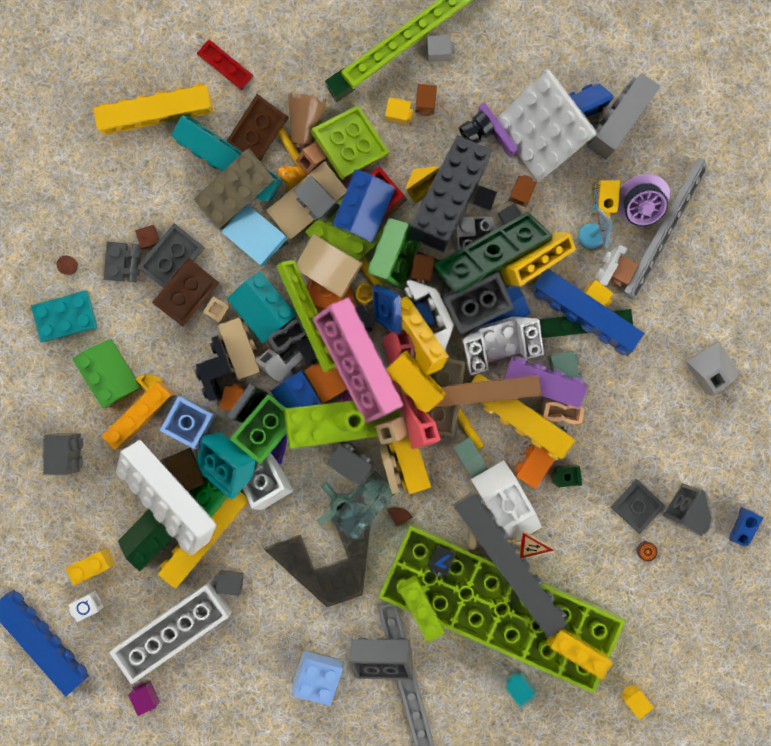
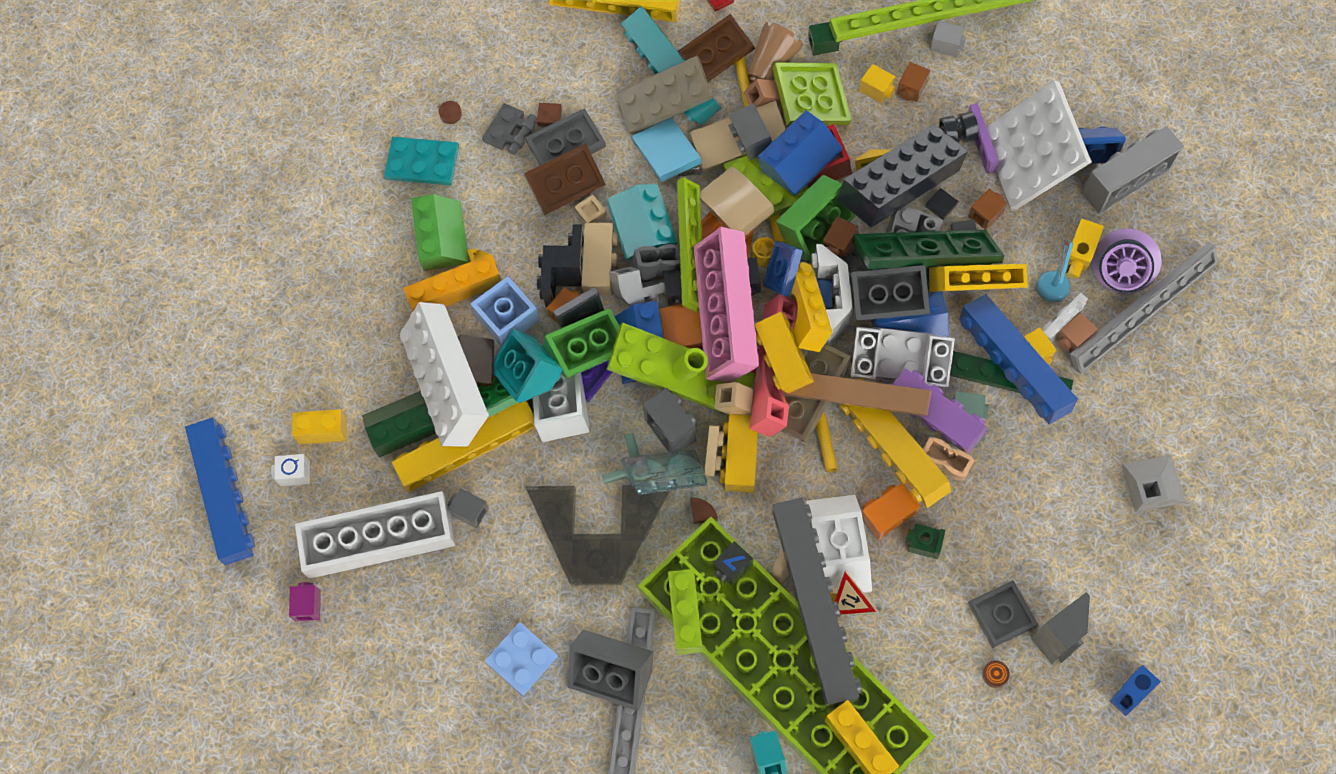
camera: 30 degrees right, 20 degrees down
(62, 453) = (351, 291): dark grey brick -> none
(291, 176) = (730, 102): light orange animal -> none
(470, 457) = (815, 472): sand green slope -> none

